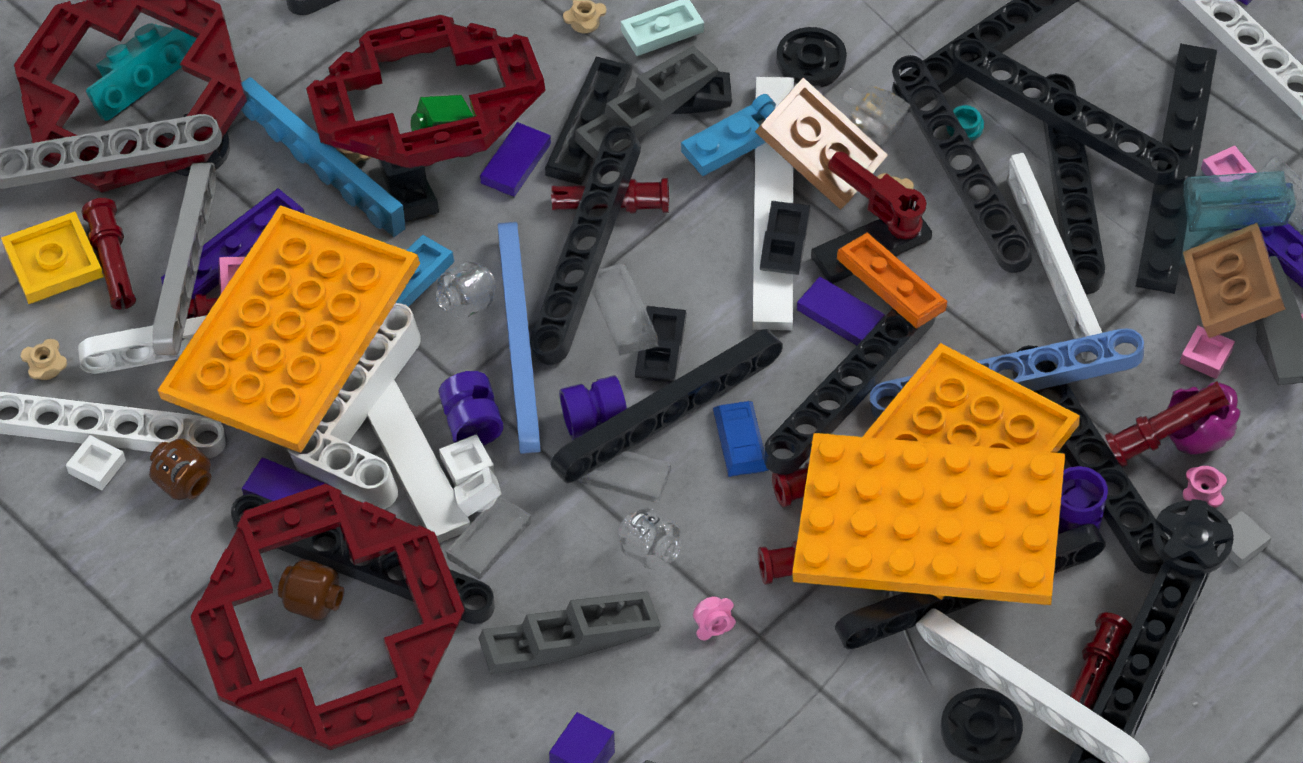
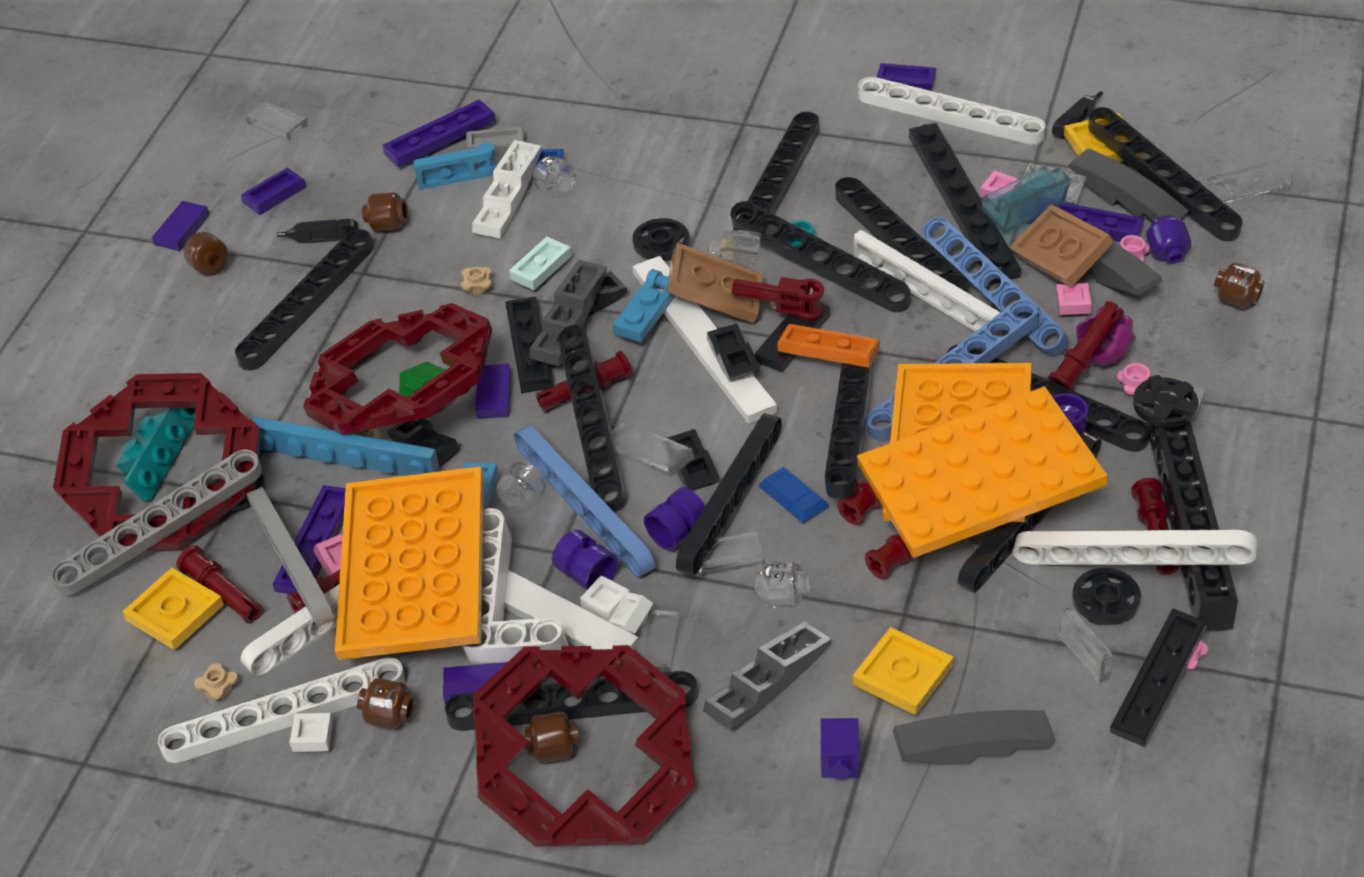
camera: 25 degrees left, 10 degrees down
(706, 700) = (903, 671): none -> yellow plate
(713, 617) = (866, 614): bright pink plate -> none
(839, 311) = (804, 384): dark purple tile -> none
(1072, 125) = (879, 202): black beam -> none
(1119, 278) = (987, 273): none -> medium blue beam

